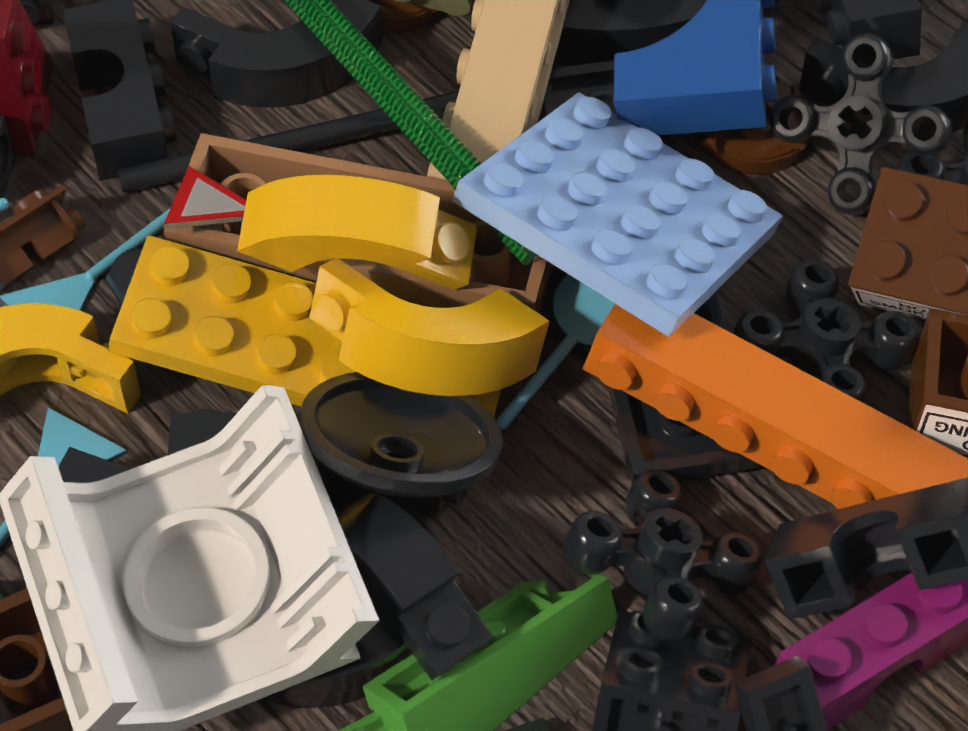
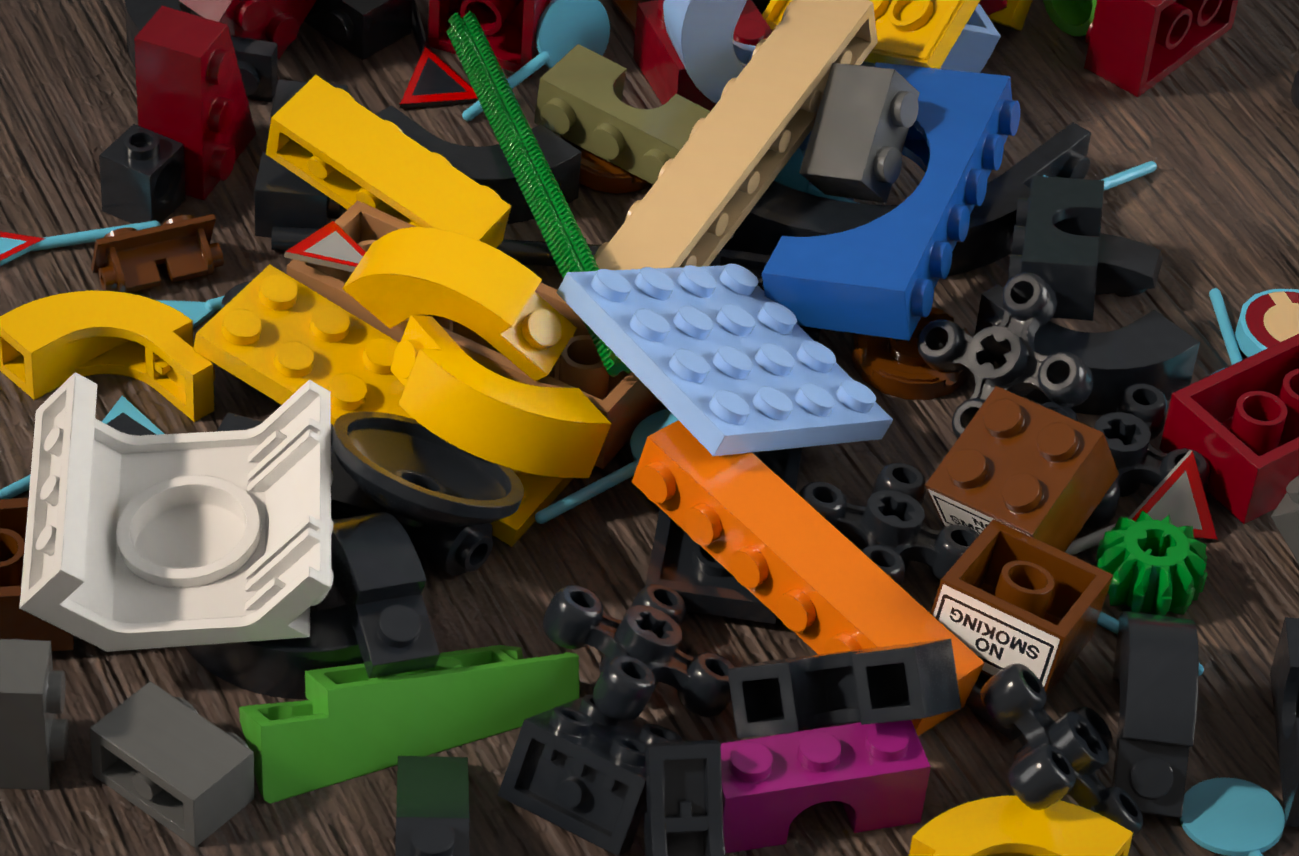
camera: 15 degrees right, 15 degrees down
(200, 90) = (370, 160): none -> yellow brick

